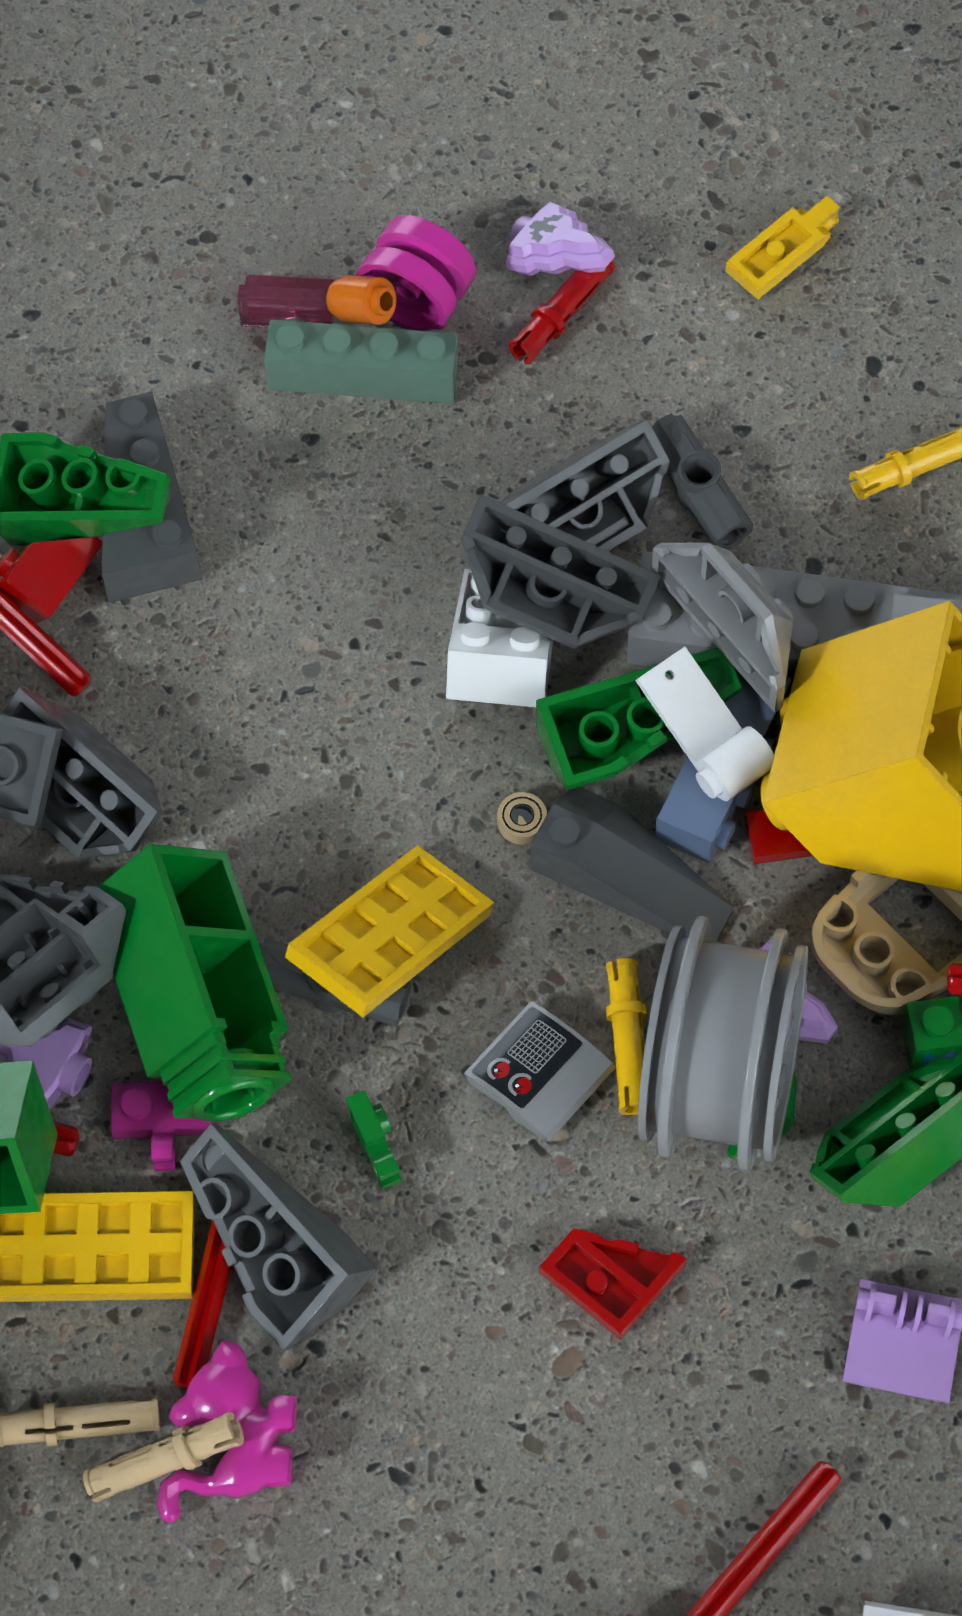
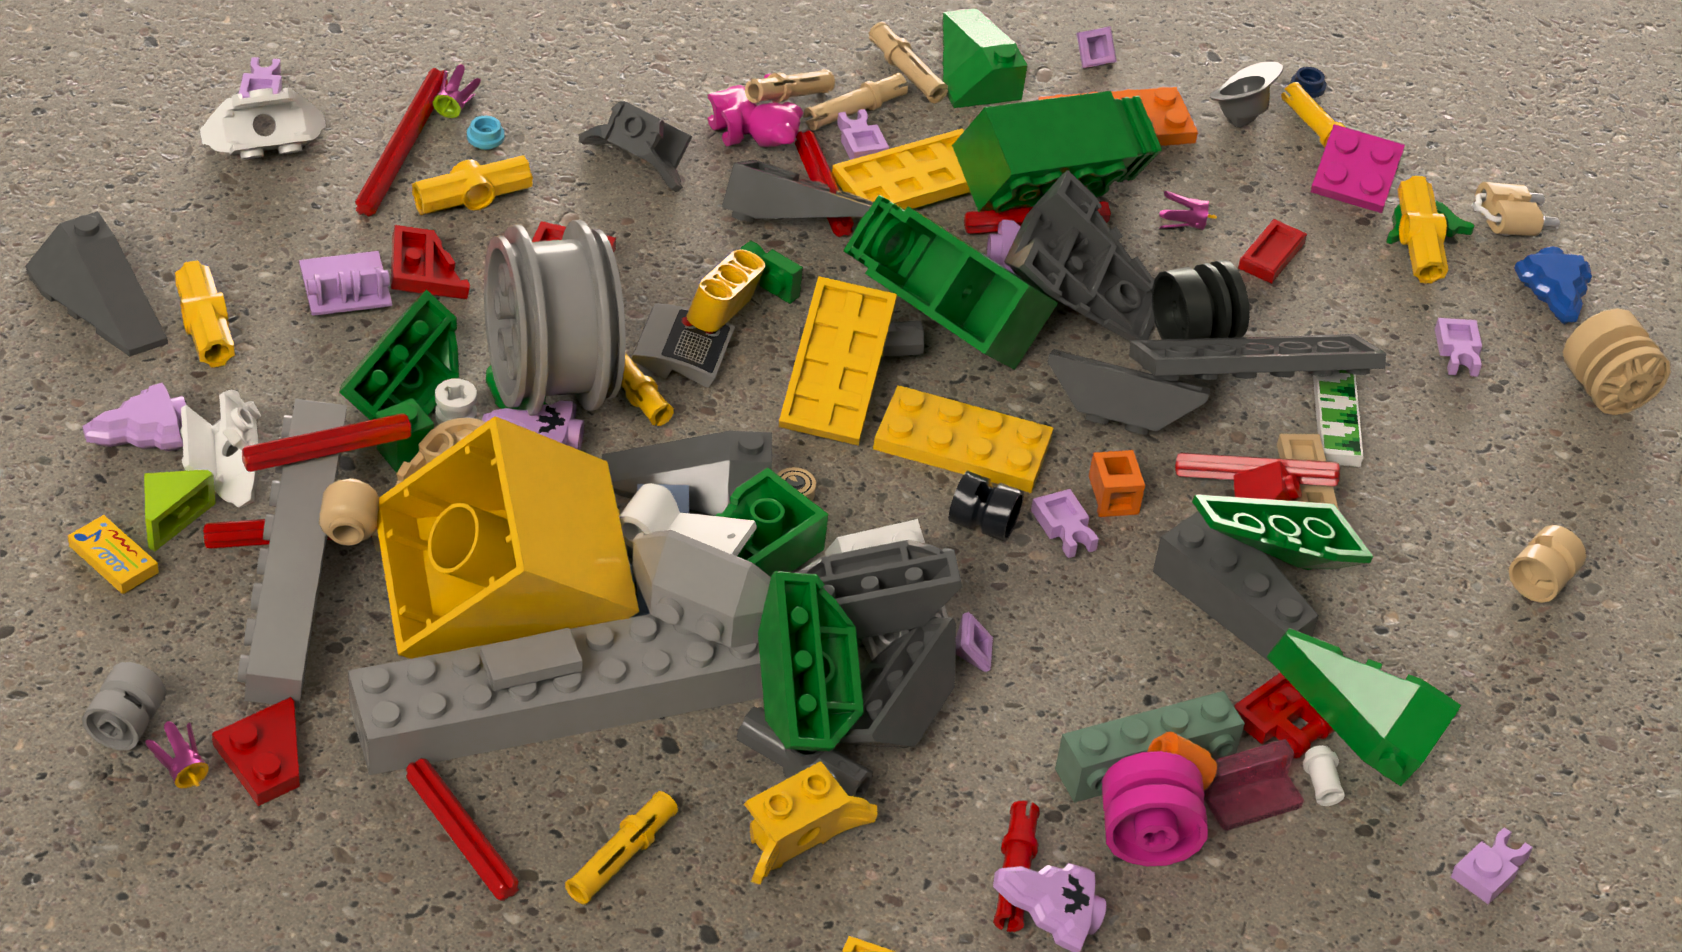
camera: 145 degrees right, 20 degrees down
(115, 1337) = (859, 137): none -> lavender plate
(128, 285) = (1379, 715): none -> green wedge
(129, 151) = (1490, 870): none -> lavender plate
(170, 661) = (1116, 483): none -> orange brick
(200, 366) = (1272, 711): none -> red plate
(207, 293) = (1321, 765): none -> white pin
(262, 657) = (1065, 518): none -> lavender plate
(293, 815) = (963, 438): none -> yellow plate
(337, 687) = (988, 506): none -> black wheel
(423, 1436) = (645, 137): none -> dark grey piece
(432, 1105) = (725, 290): none -> yellow beam
(448, 548) = (974, 643): none -> lavender slope
(610, 1541) = (485, 132): none -> medium azure plate
(675, 1449) = (472, 185): none -> yellow piece
(680, 483) = (808, 664): none -> green wedge
(748, 399) = (801, 815): none -> yellow piece
(798, 1327) = (423, 264): none -> red wing
(851, 1085) = (455, 400): none -> white wheel

